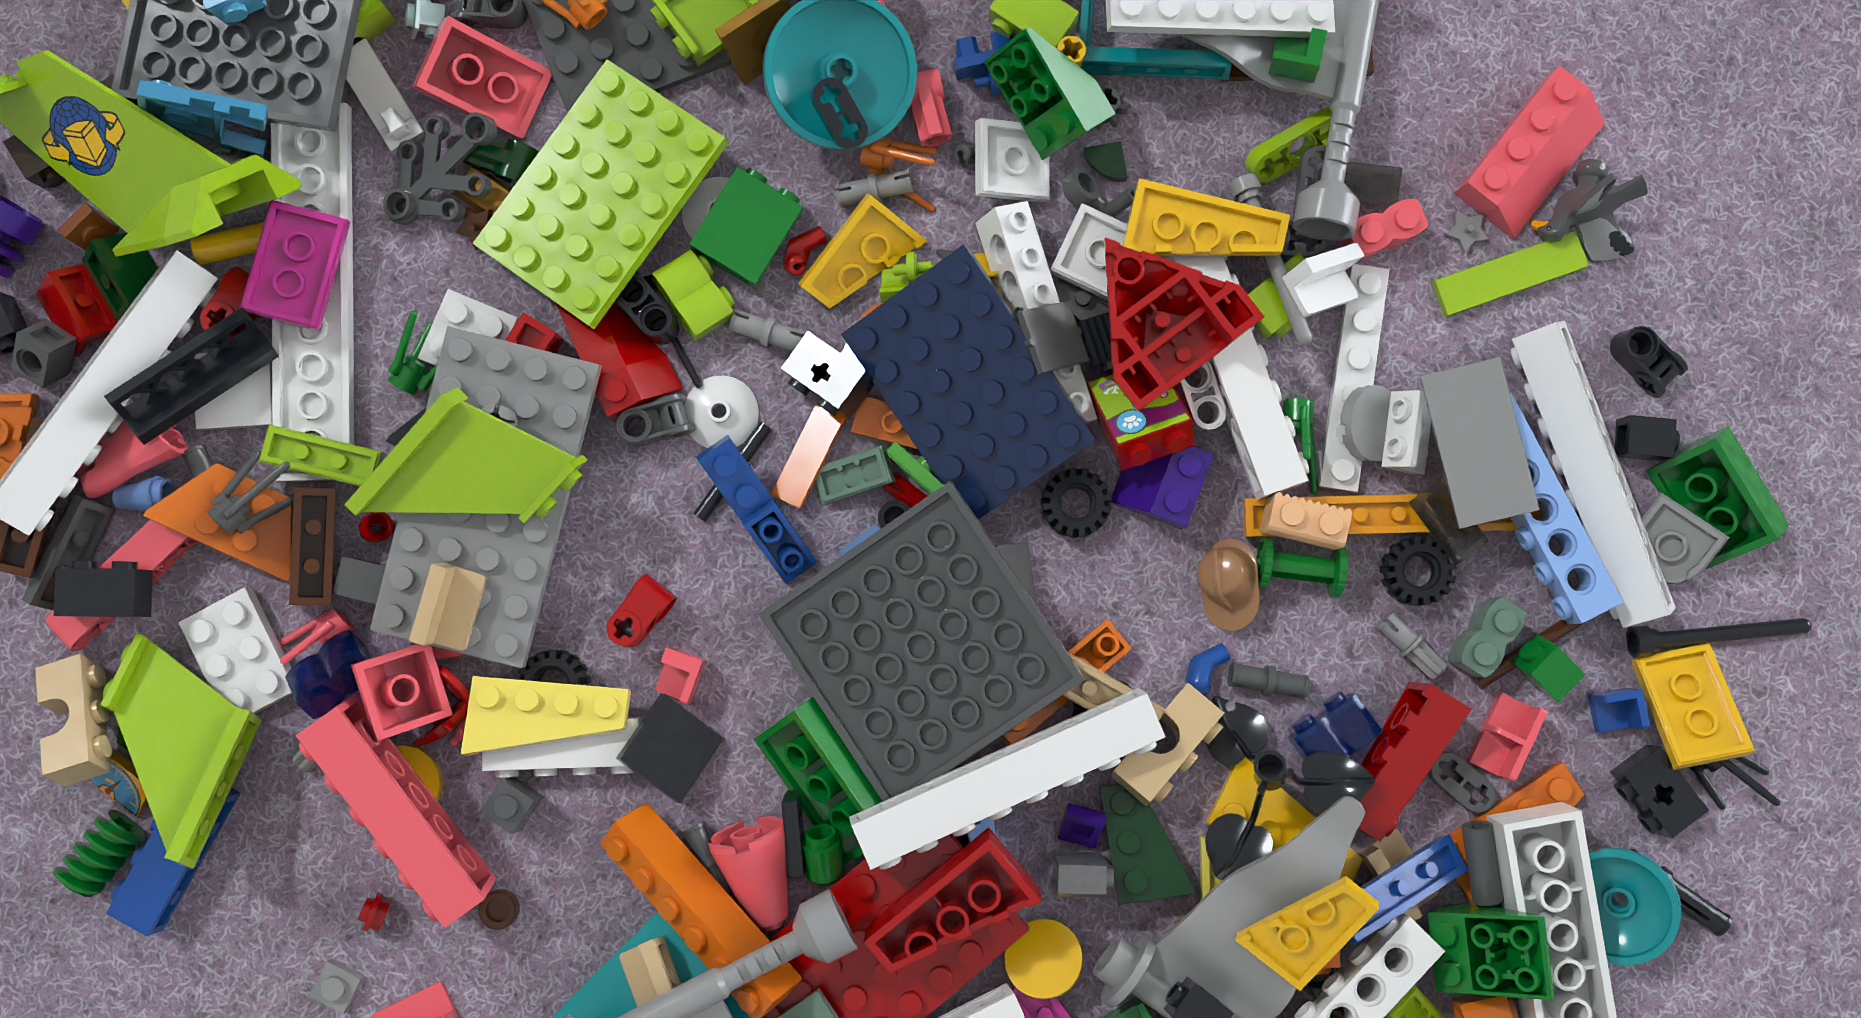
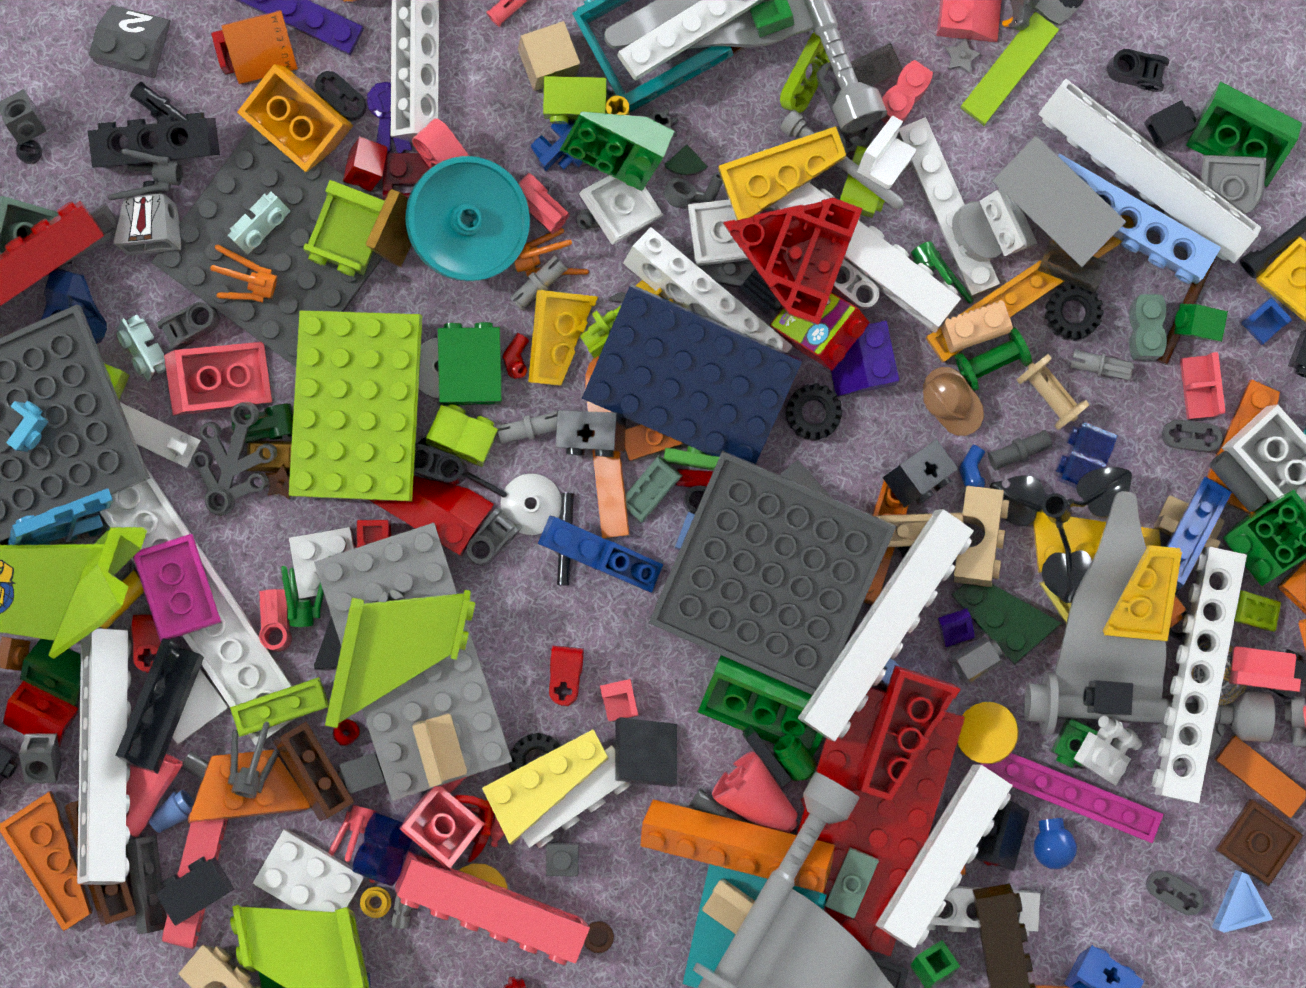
camera: 30 degrees left, 0 degrees up
(281, 719) = (366, 906): none -> yellow plate
(376, 361) = (274, 616): none -> coral piece
(847, 108) = (483, 255): black beam -> none
(1053, 337) = (729, 310): dark grey piece -> none
(1147, 639) = (920, 473): none -> brick
(1342, 642) = (1053, 392): none -> tan hose
(1406, 751) = (1141, 441): red wedge -> none

